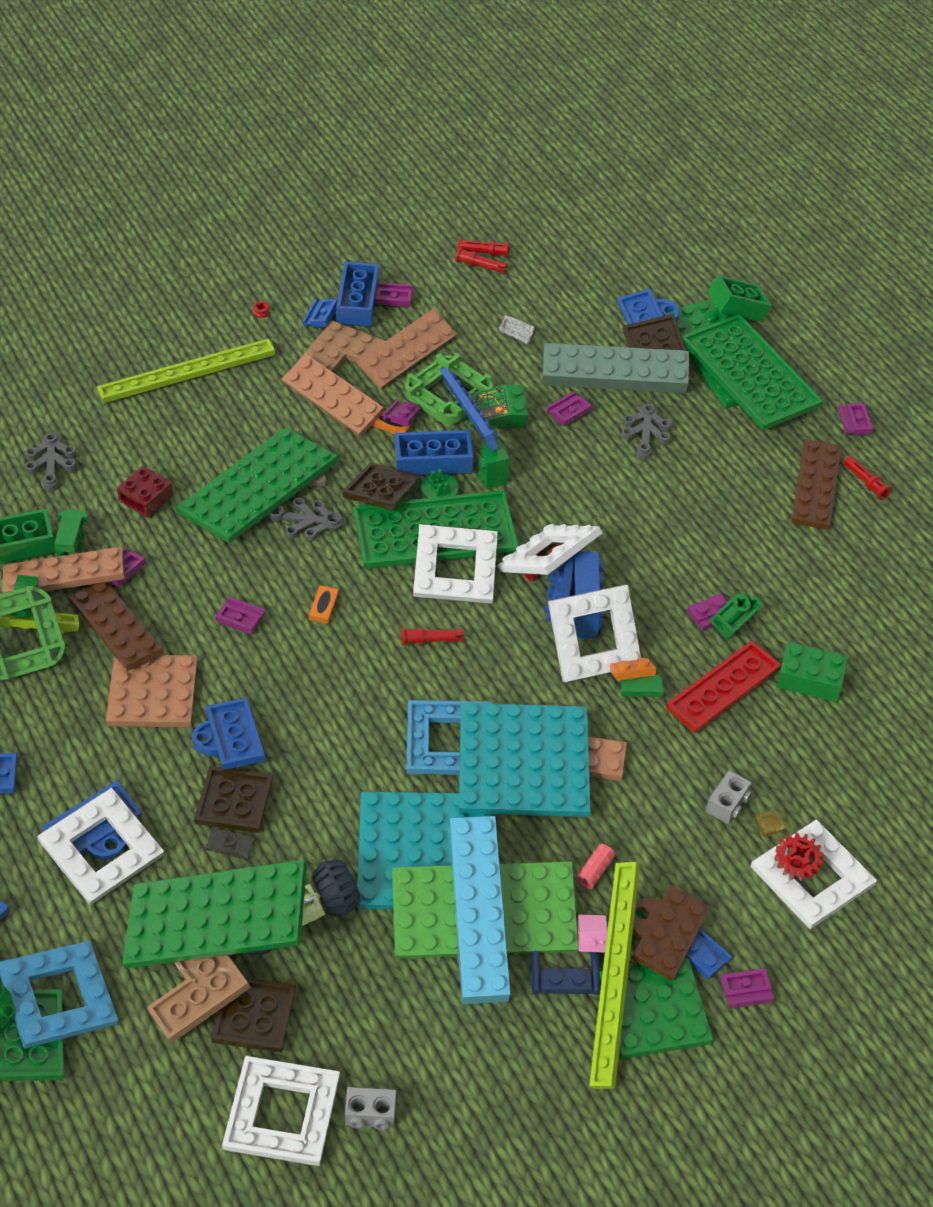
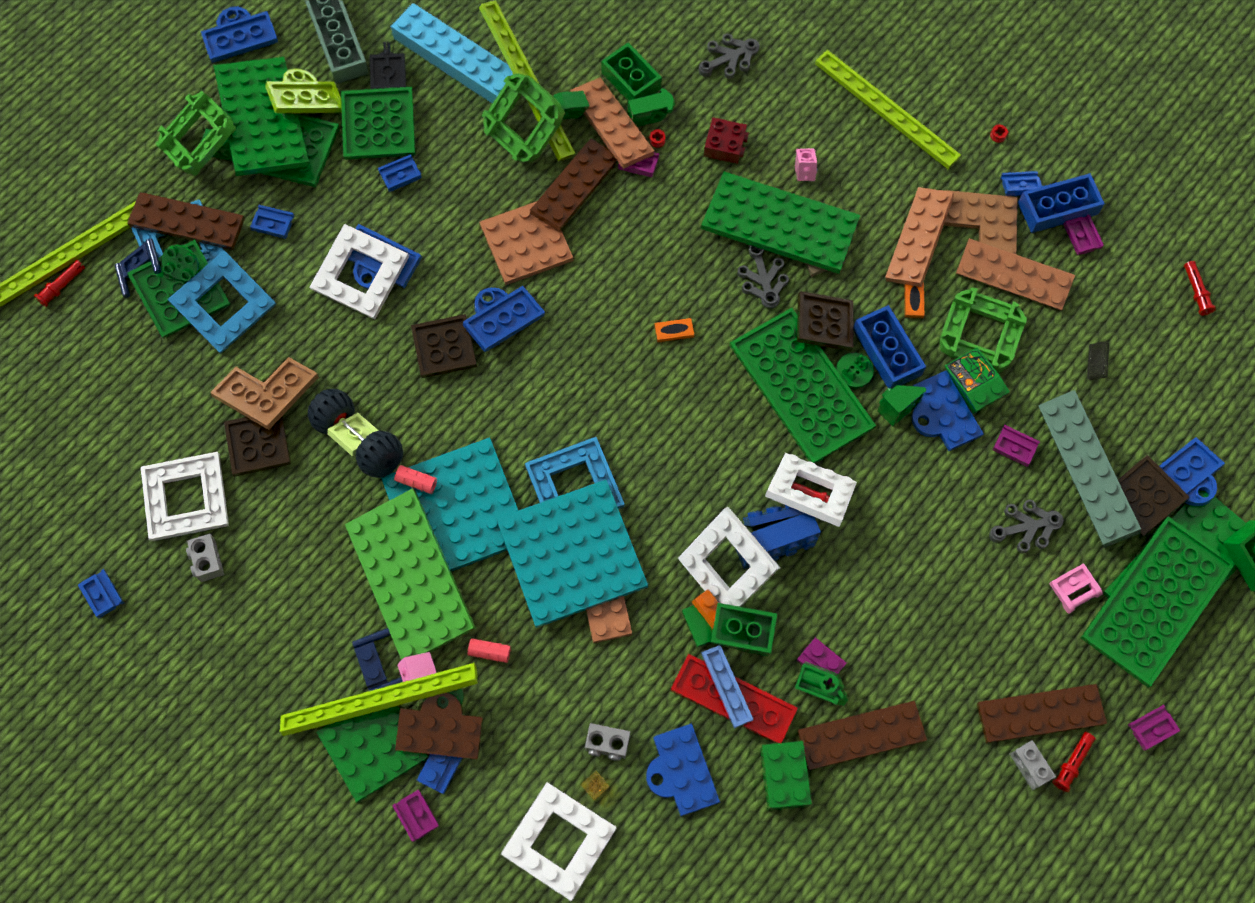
camera: 70 degrees right, 20 degrees up
(104, 541) = (657, 133): none -> red bush
(211, 442) = (805, 165): none -> bright pink head
(216, 914) = (319, 378): green plate -> none
(230, 844) = (403, 362): clear smoke plate -> none
(240, 615) = (630, 271): magenta plate -> none
(381, 865) = (415, 479): none -> coral axle
(402, 413) = (928, 302): magenta plate -> none
(421, 636) = (673, 421): red pin -> none
(429, 586) = (775, 384): white plate -> none
(470, 408) = (948, 355): blue plate -> none
(473, 258) = (1175, 284): red pin -> none
(479, 910) = (395, 569): medium azure brick -> none
(519, 443) = (945, 413): none -> blue plate
(664, 645) = (744, 629): none -> green slope
(710, 421) = (1072, 582): none -> bright pink plate
(713, 681) = (727, 686): none -> medium blue plate
(777, 751) = (682, 771): none -> blue plate
(791, 605) = (862, 735): none -> reddish brown plate
(793, 862) = (552, 827): red gear -> none
(861, 502) = (1032, 765): none -> light grey brick

